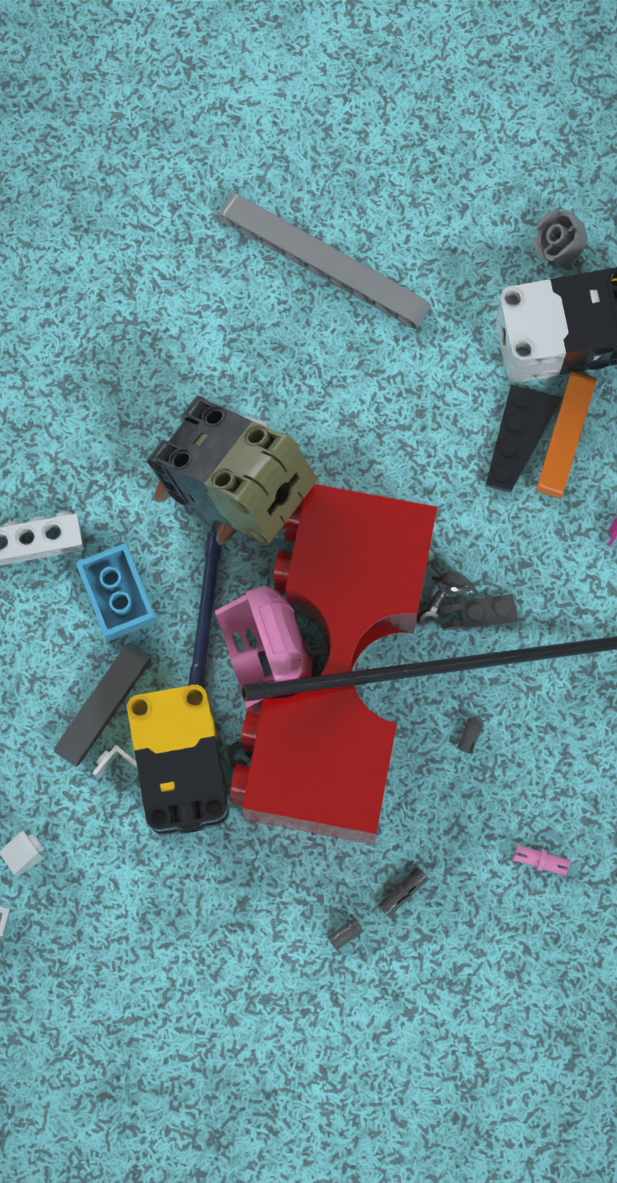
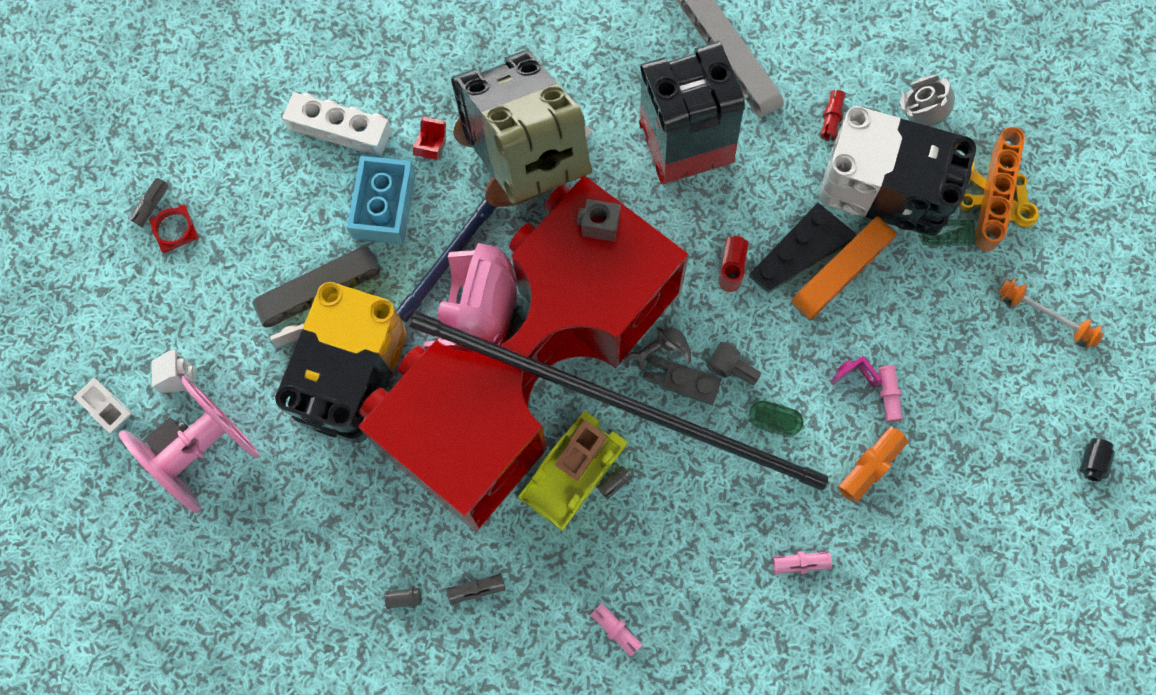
camera: 30 degrees right, 5 degrees down
(57, 912) = (165, 435): none -> dark grey brick
(90, 902) = (187, 447): none -> bright pink piece
(124, 510) = (431, 138): none -> red bracket
(355, 509) = (605, 230): none -> dark grey brick
(360, 368) = (691, 112): none -> black piece
(429, 724) = (582, 450): none -> nougat brick
(429, 745) = (557, 494): none -> neon yellow piece
(465, 481) = (733, 262): none -> red piece
(480, 292) = (833, 115): none -> red pin
(508, 576) = (727, 362): none -> dark grey axle
(578, 604) = (776, 418): none -> clear green tile

